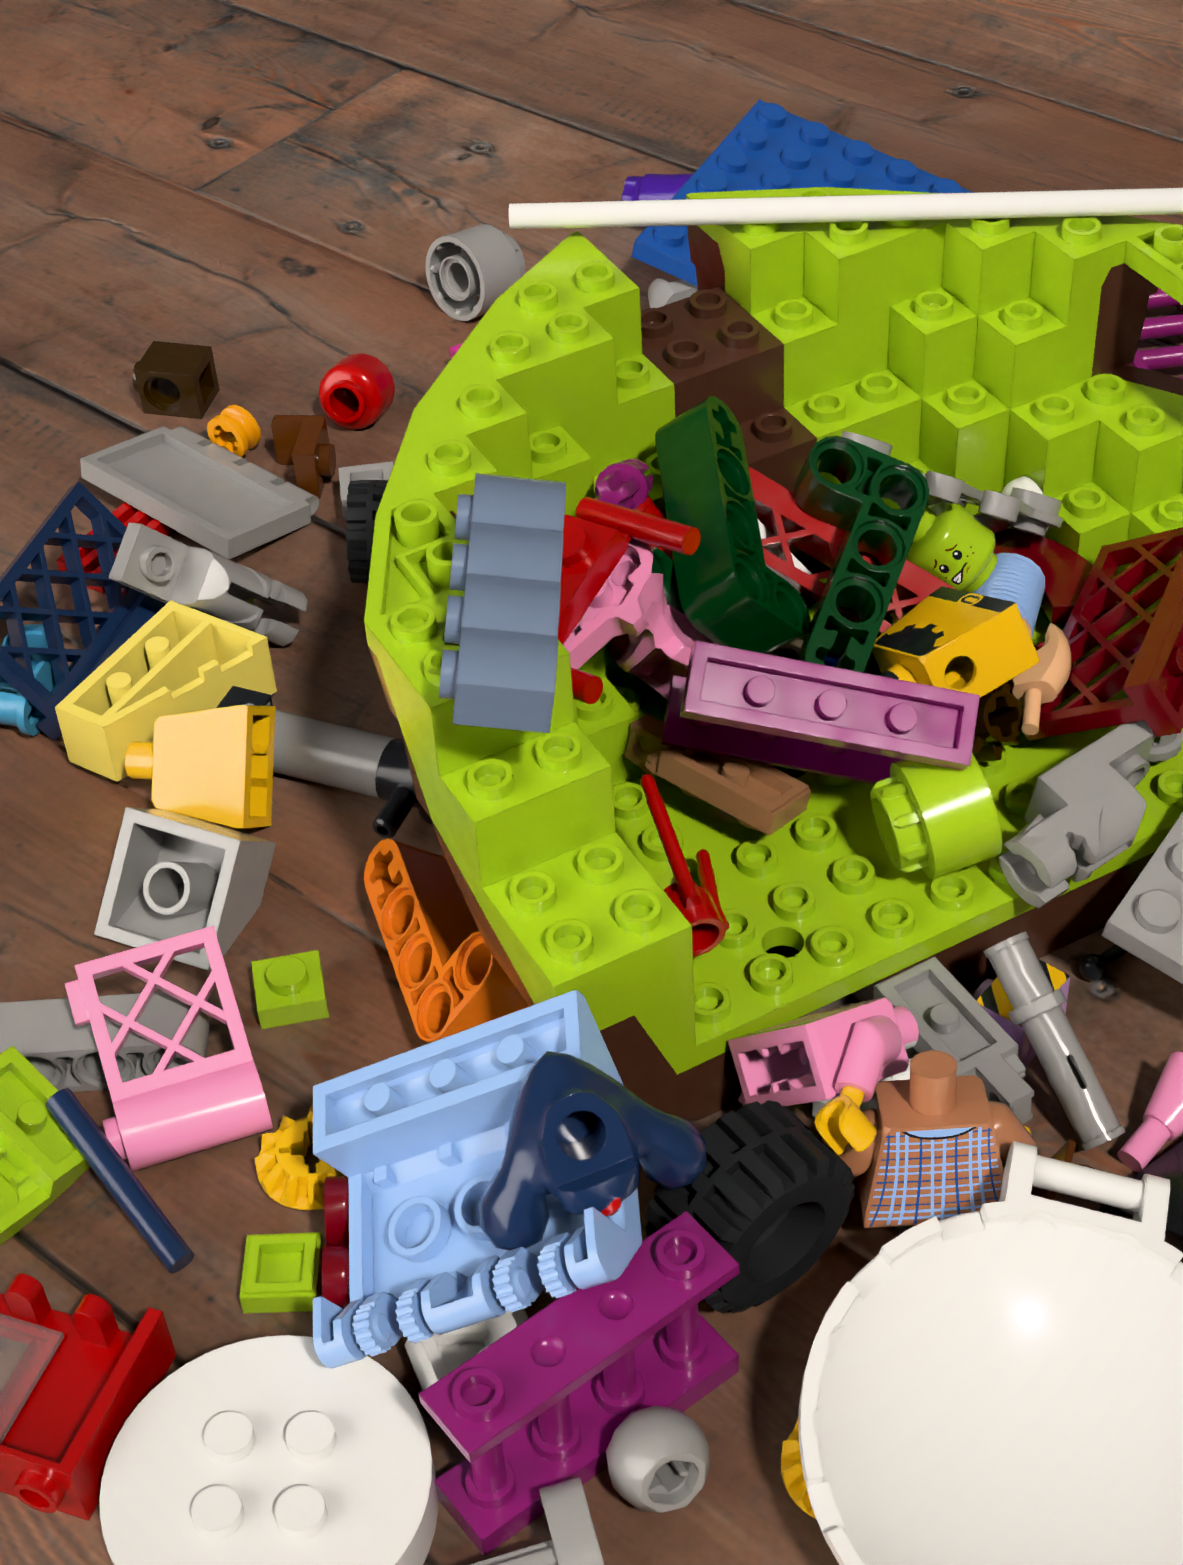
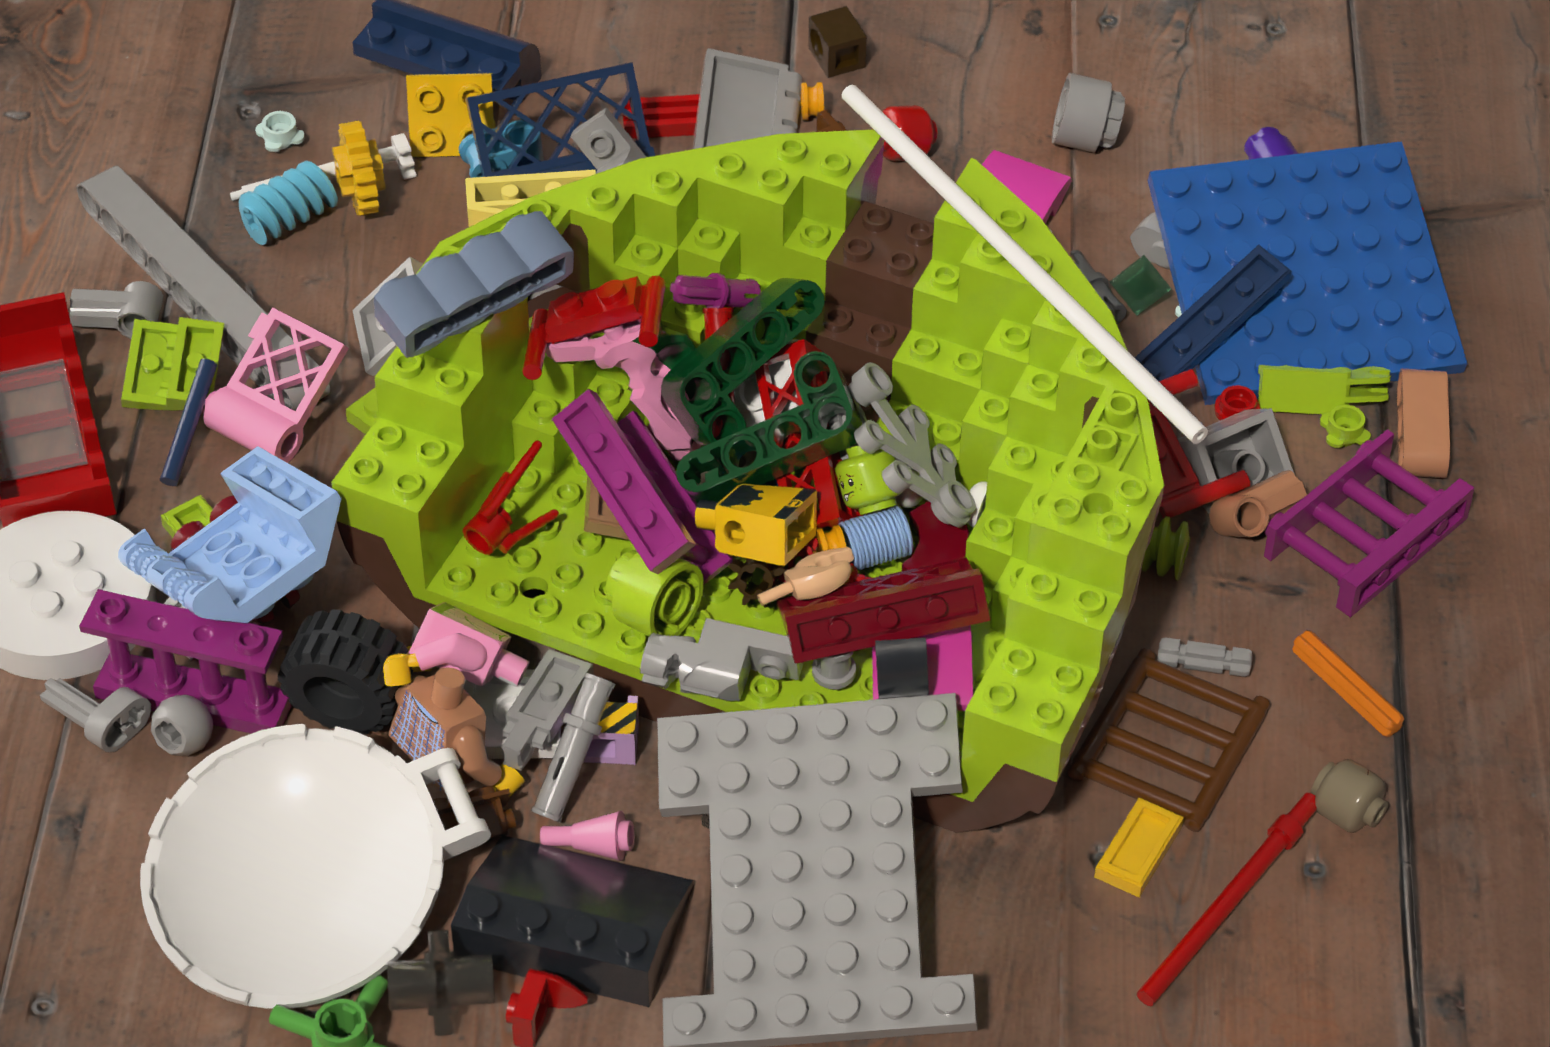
camera: 50 degrees right, 5 degrees up
(583, 1143) = (262, 553): dark blue head -> none

